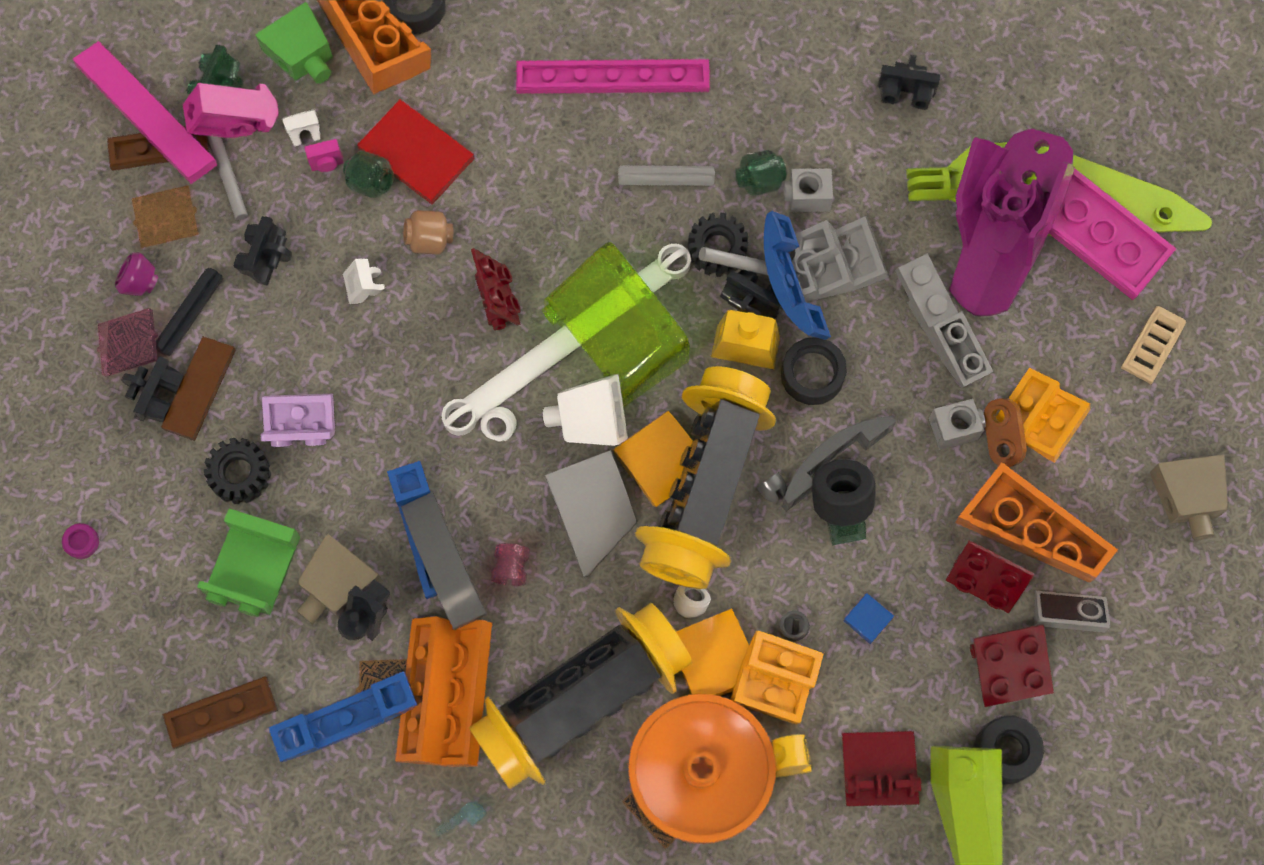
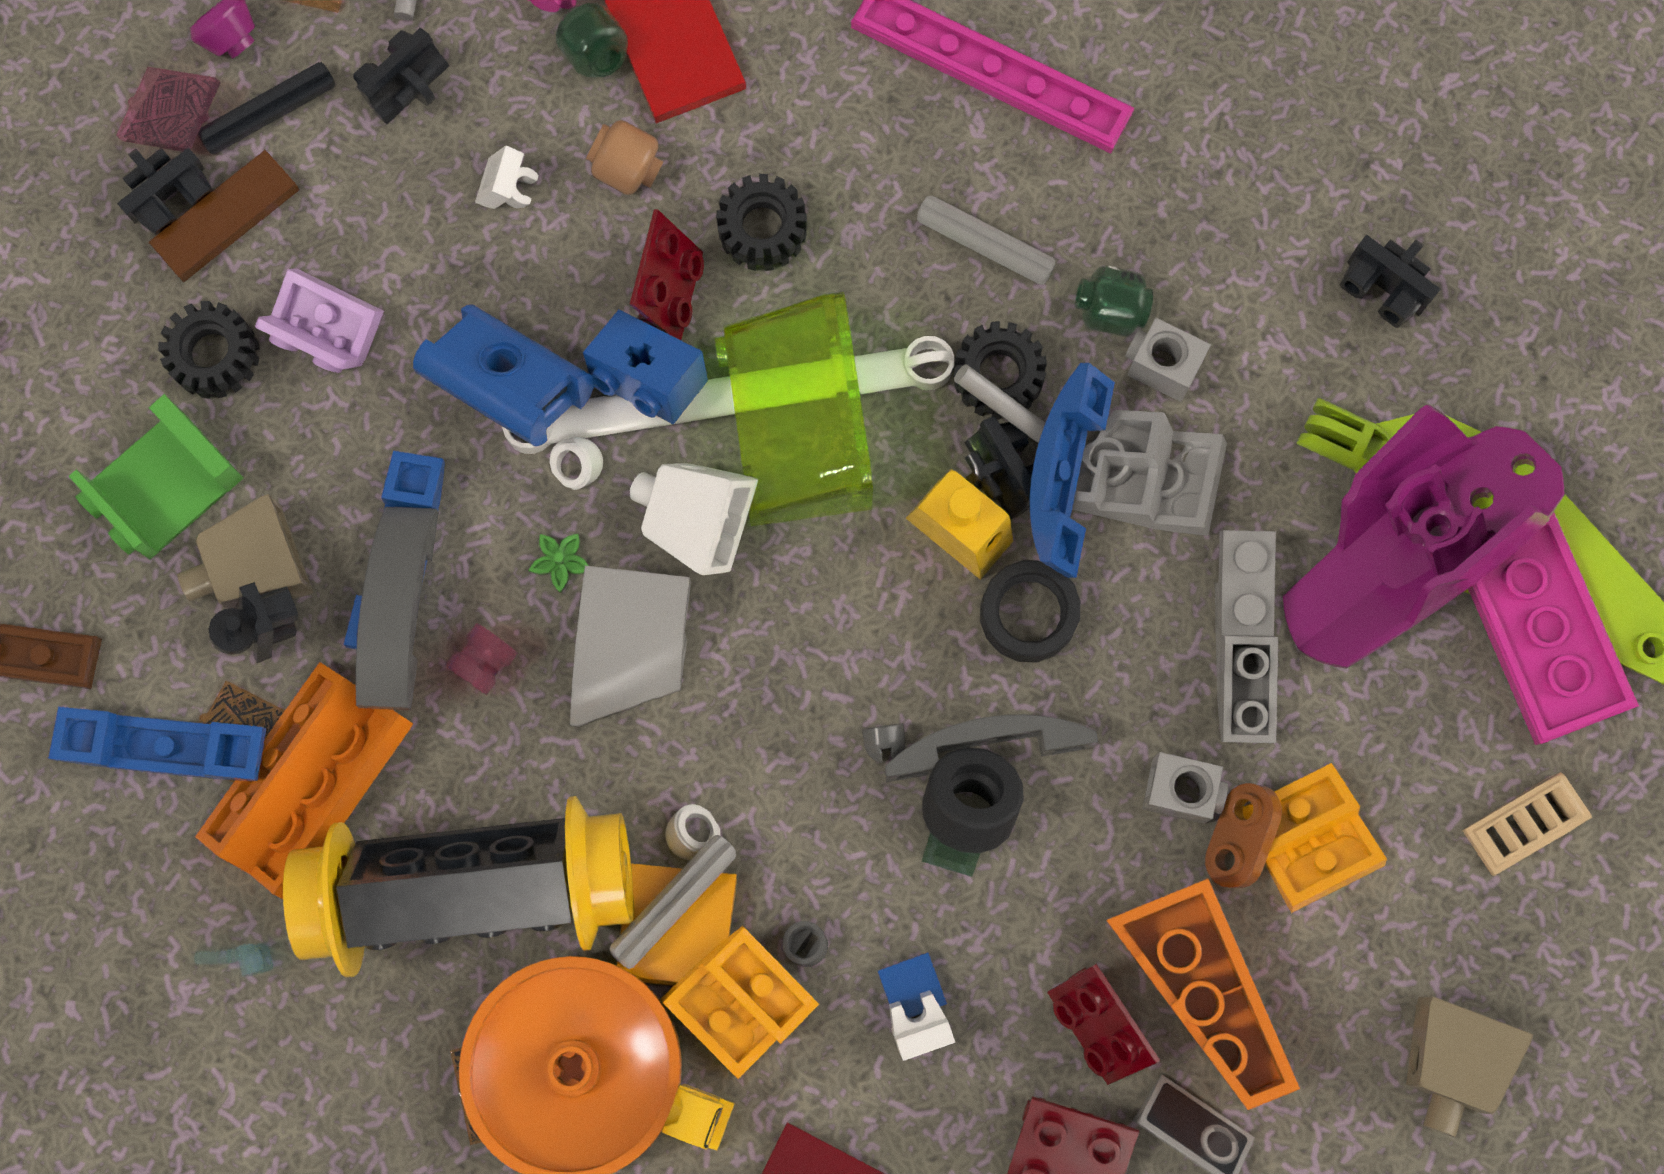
camera: 30 degrees right, 5 degrees up
(430, 392) = (503, 374): none -> blue piece
(512, 345) = (645, 367): none -> blue brick
(522, 485) = (559, 559): none -> bright green plant
(525, 212) = (762, 195): none -> black tyre
(654, 456) = (759, 622): light orange slope -> none
(687, 536) = (814, 668): brick -> none
(706, 641) = (673, 901): none -> light grey axle
(890, 639) = (922, 1033): none -> white tile

